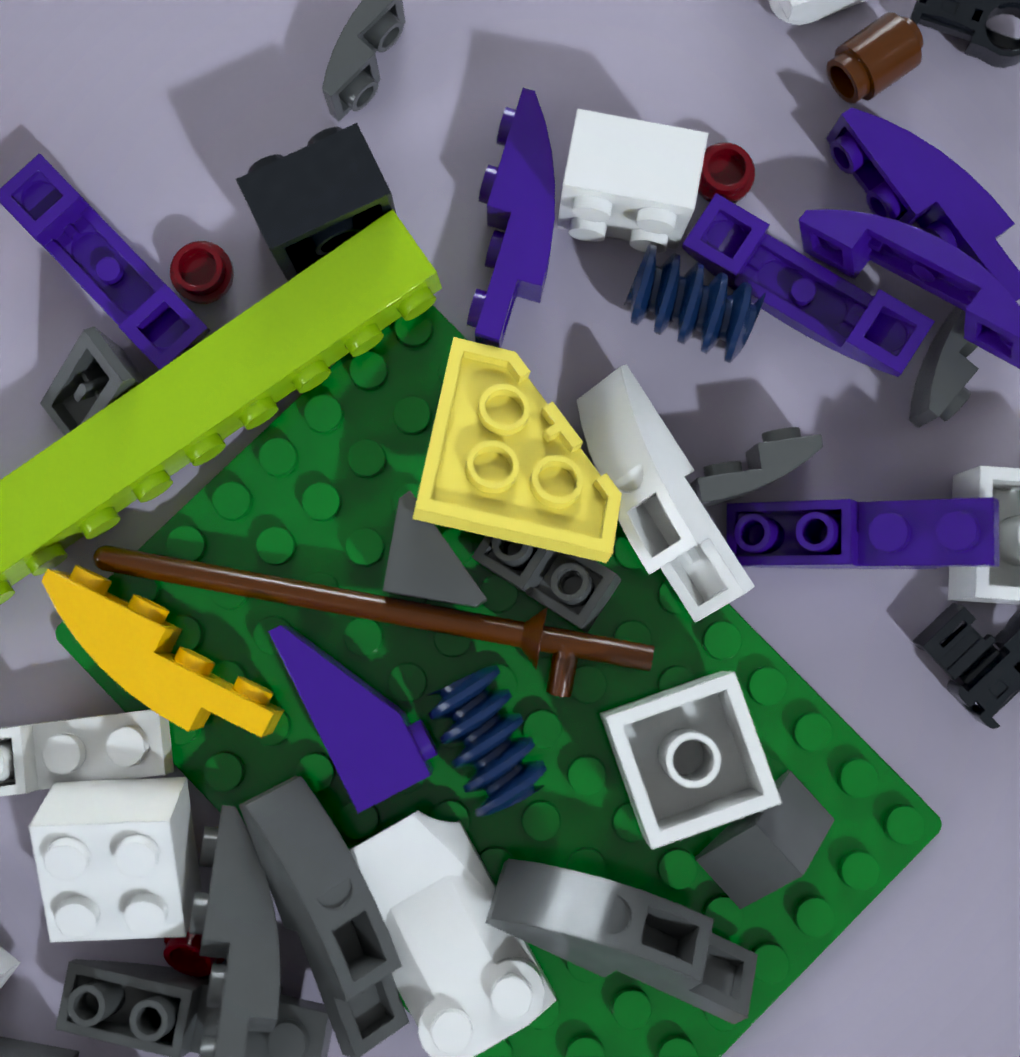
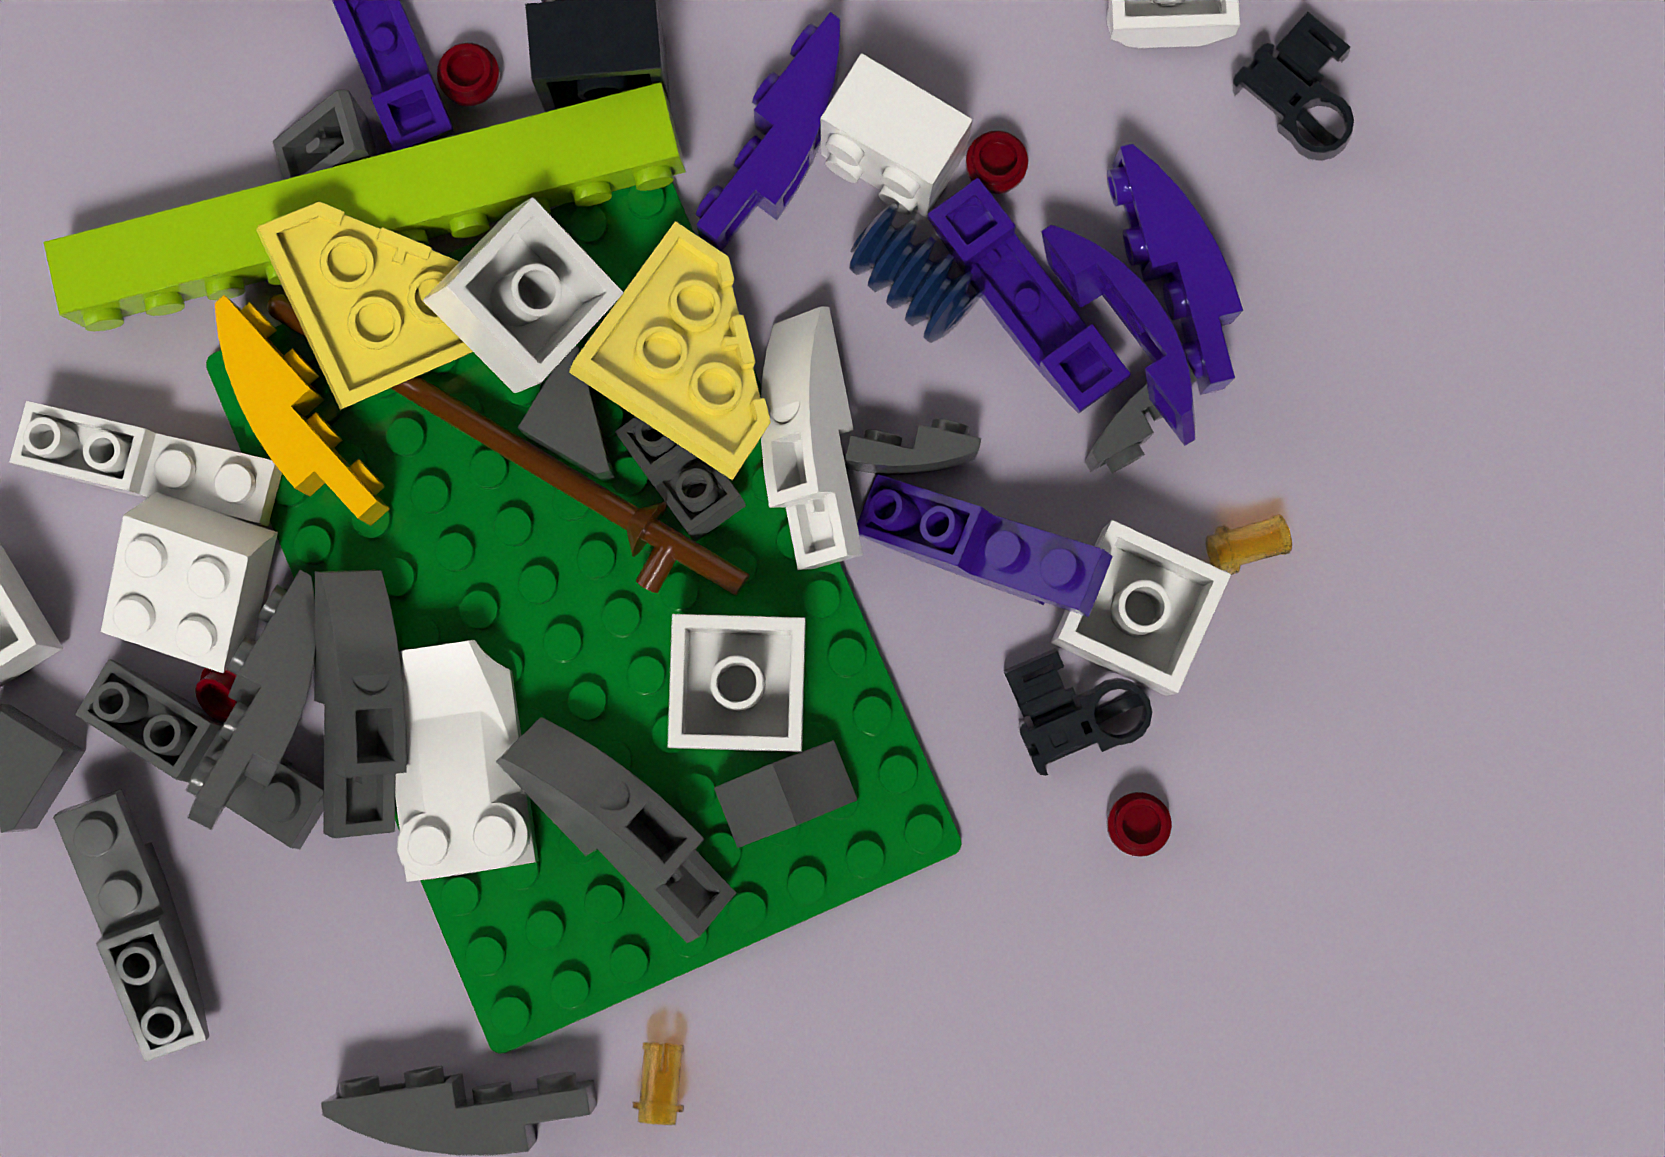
camera: 25 degrees right, 0 degrees up
(200, 518) = (361, 299): none -> light yellow plate
(341, 462) = (523, 296): none -> white brick
(361, 728) = (453, 554): dark purple slope -> none
(488, 741) = (561, 601): dark blue piece -> none
(875, 58) = (1183, 105): reddish brown brick -> none

